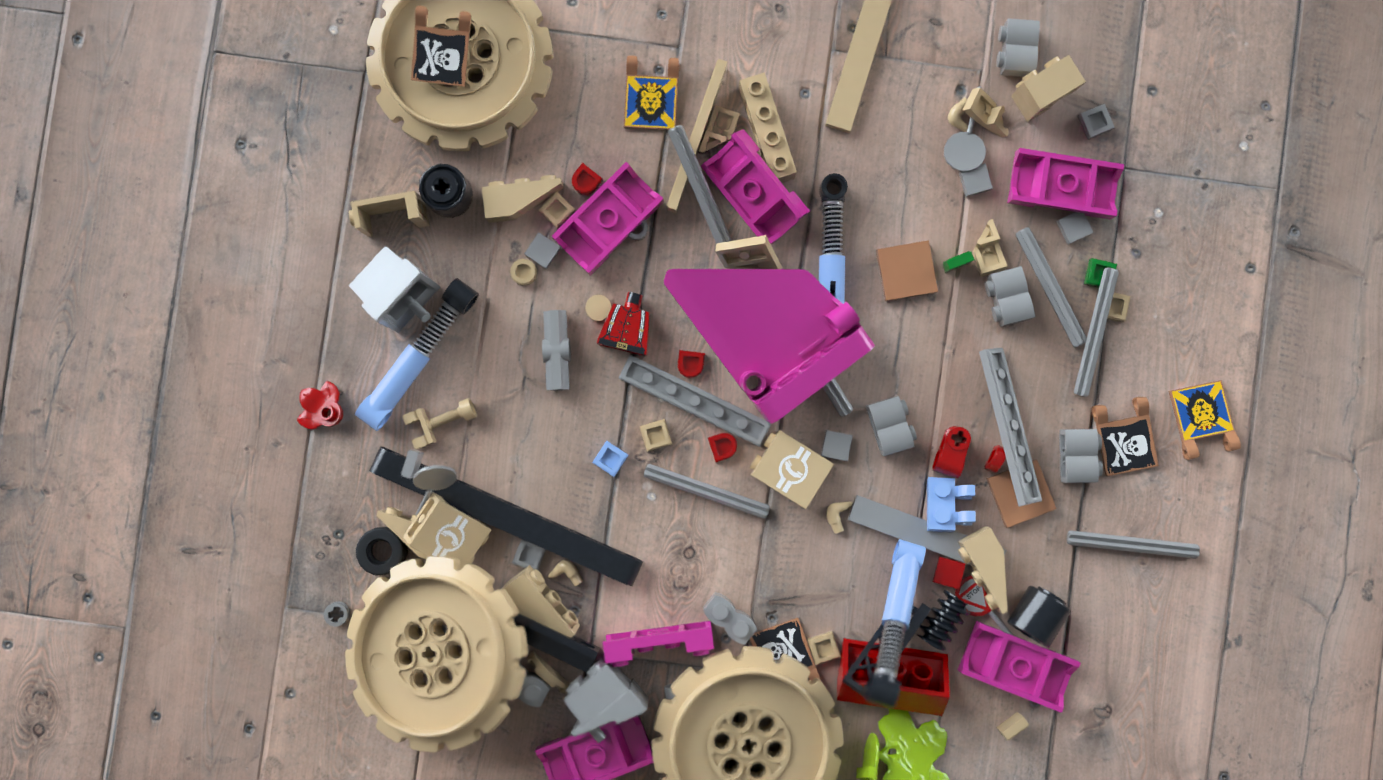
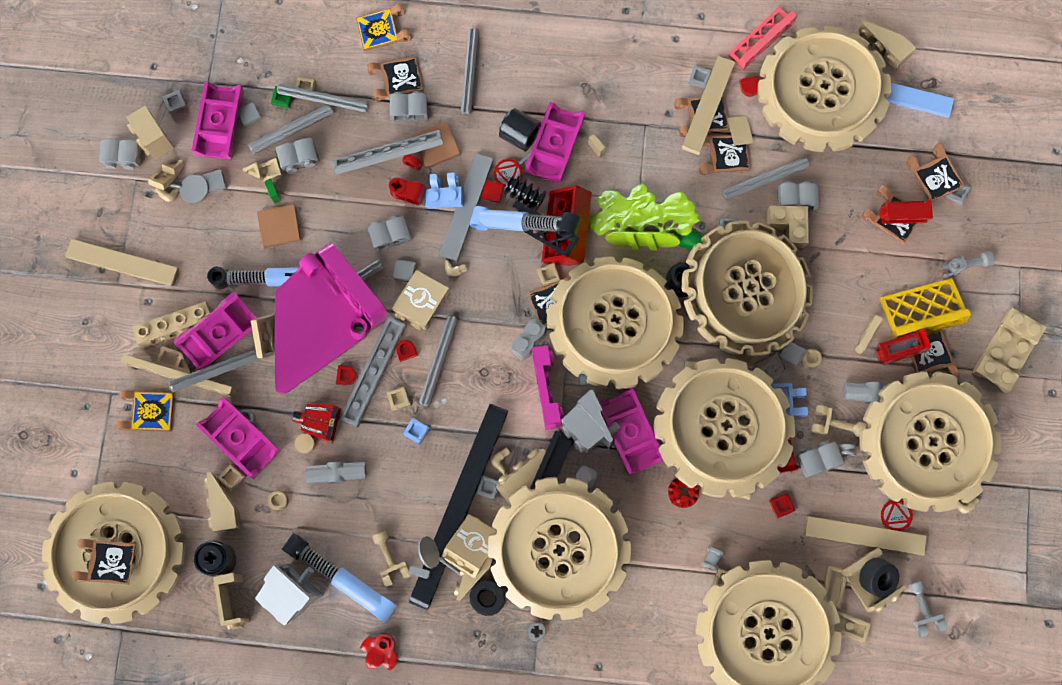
camera: 90 degrees left, 10 degrees down
(542, 250) = (261, 486): light grey tile -> none
(547, 673) = (574, 468): tan tile -> none
(585, 180) = (209, 457): red tile -> none
(988, 562) = (482, 164): tan slope -> none

